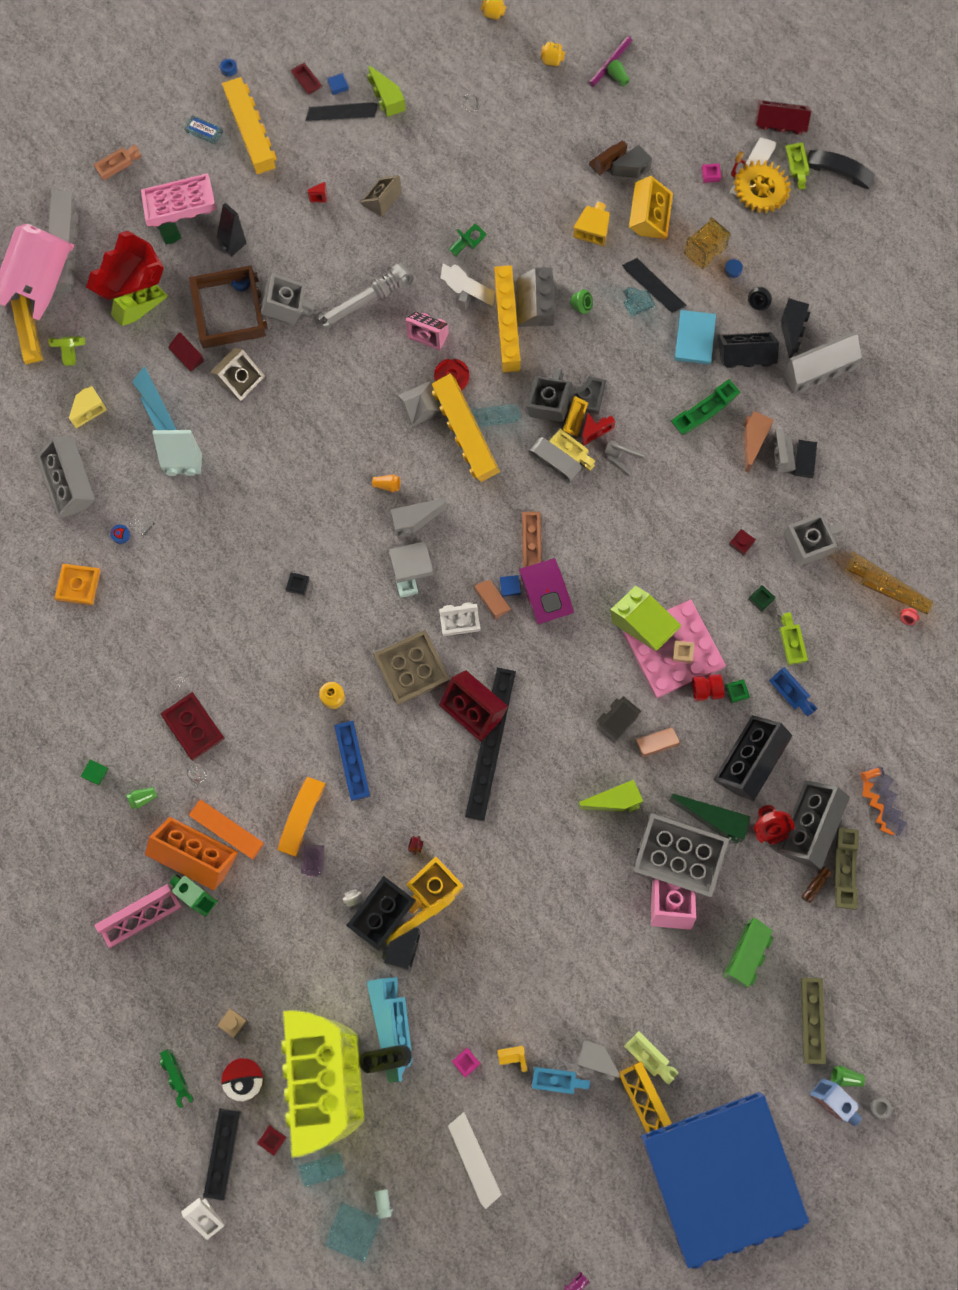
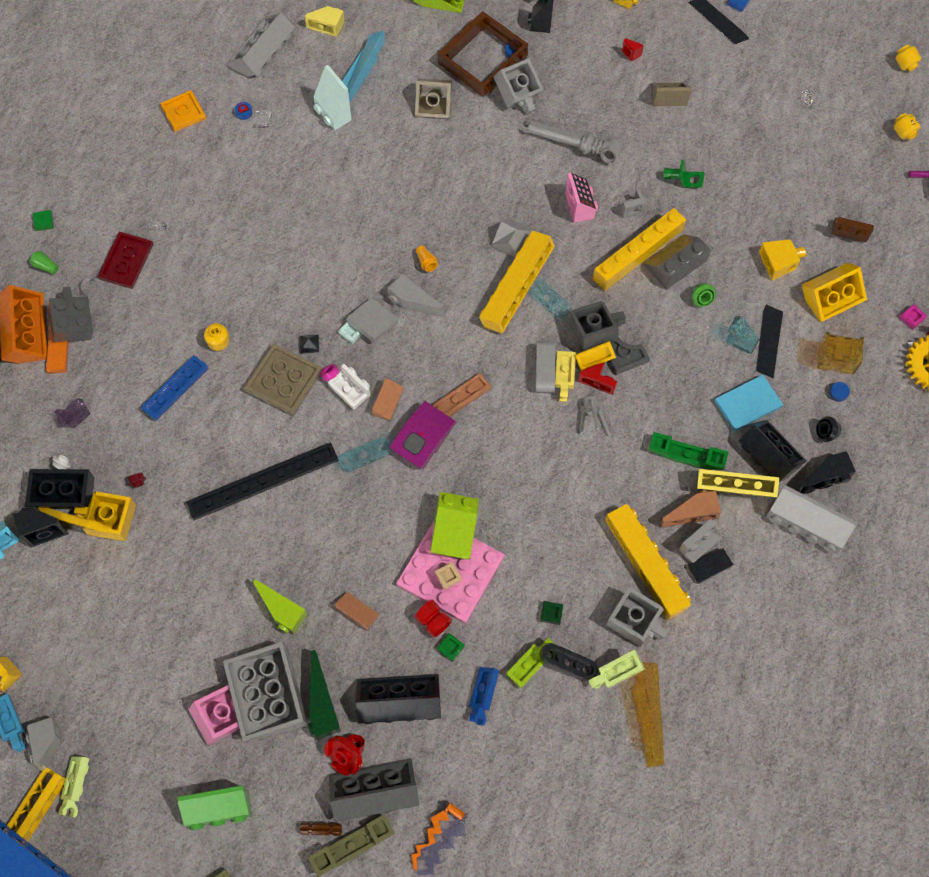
camera: 50 degrees right, 5 degrees down
(185, 352) = (424, 54): dark red slope -> none
(219, 805) = (70, 317): none -> dark grey hinge
(297, 584) = (294, 253): black tile -> none
(300, 816) = (105, 380): light orange slope -> none
(388, 92) = (761, 38): lime slope -> none
(392, 626) = (309, 343): none -> black slope
(434, 626) = (329, 372): none -> dark pink tile
(456, 368) = (563, 242): red tile -> none
(458, 281) = (637, 187): white sticker -> none
(472, 705) = (283, 443): dark red slope -> none
(510, 586) = (408, 405): blue tile -> none
(530, 662) = (363, 462): none -> clear light blue beam
(618, 719) = (352, 565): clear smoke brick -> none
(632, 163) = (863, 250): dark grey slope -> none
(742, 542) = (590, 563): dark red plate -> none
(759, 391) = (738, 483): none -> light yellow brick
(771, 499) = (647, 561): none -> yellow brick
(803, 616) = (576, 661): none -> black plate
(846, 580) = (618, 670): none -> yellowish green plate
(909, 616) = (631, 751): coral plate -> none

